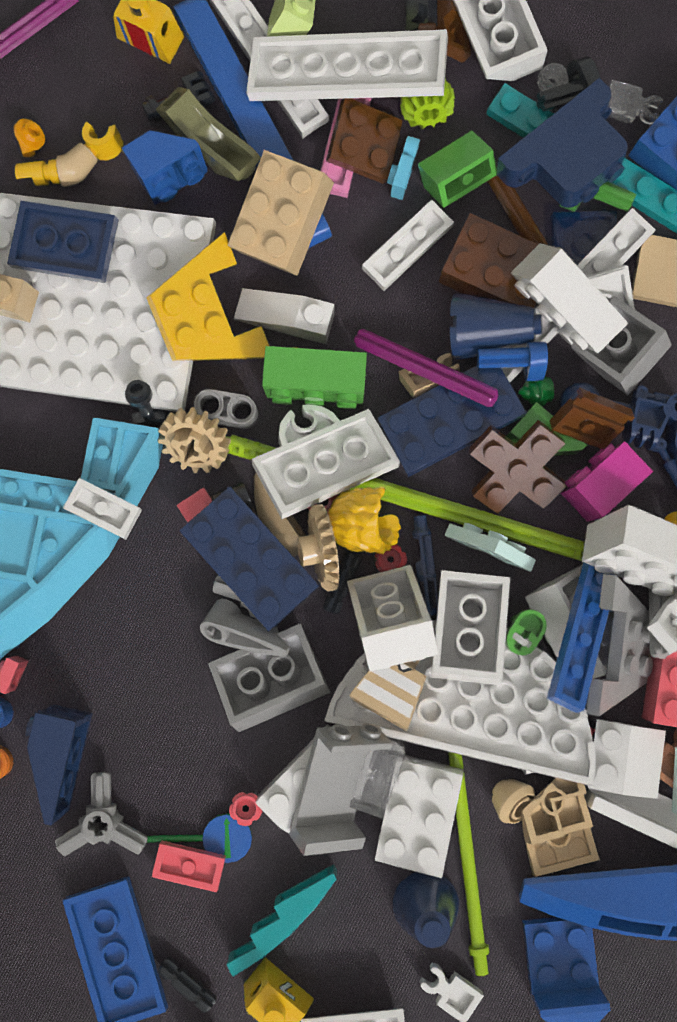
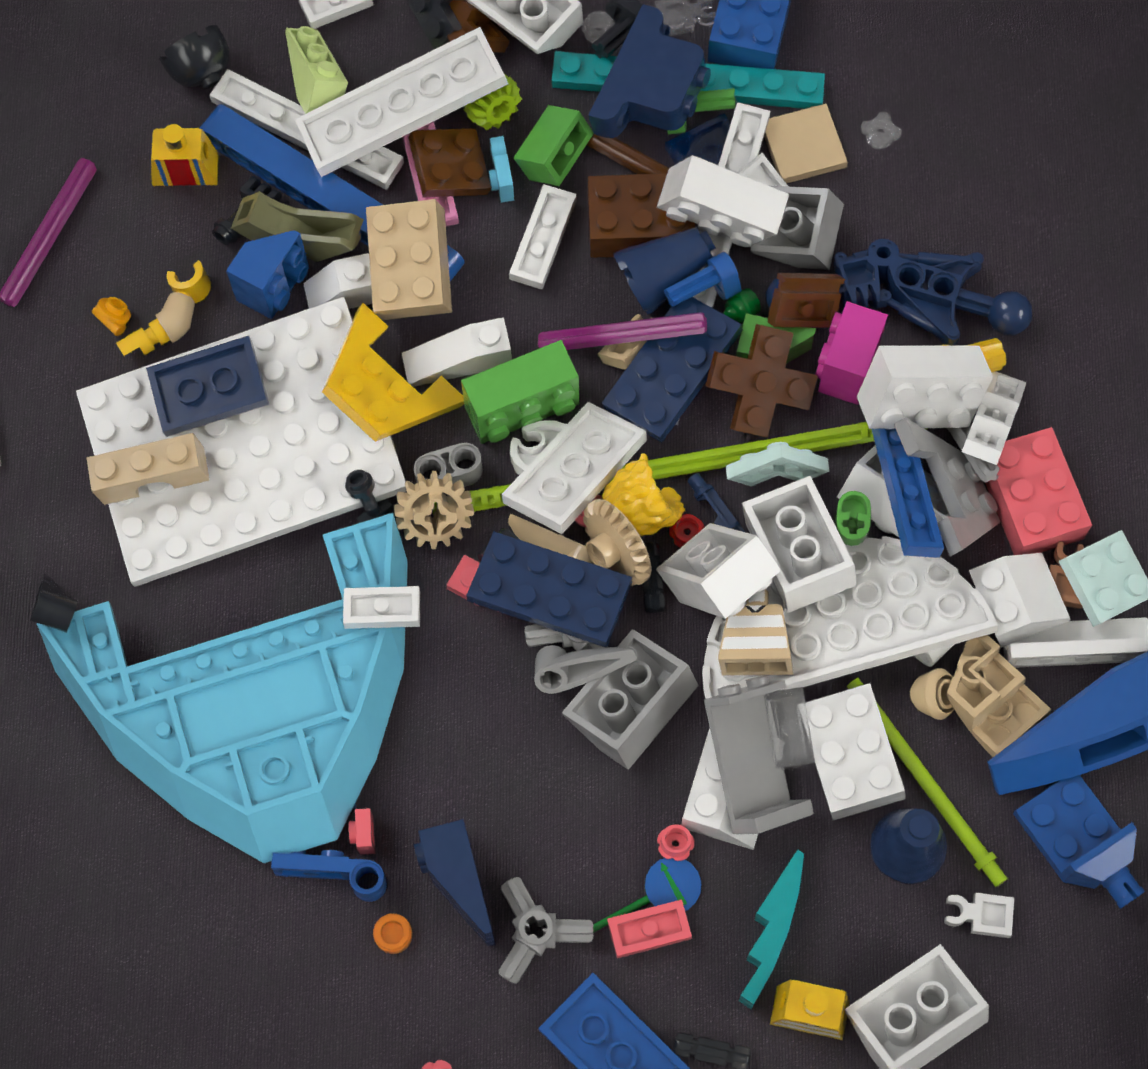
camera: 30 degrees left, 15 degrees down
(219, 202) = (341, 278): none -> white slope

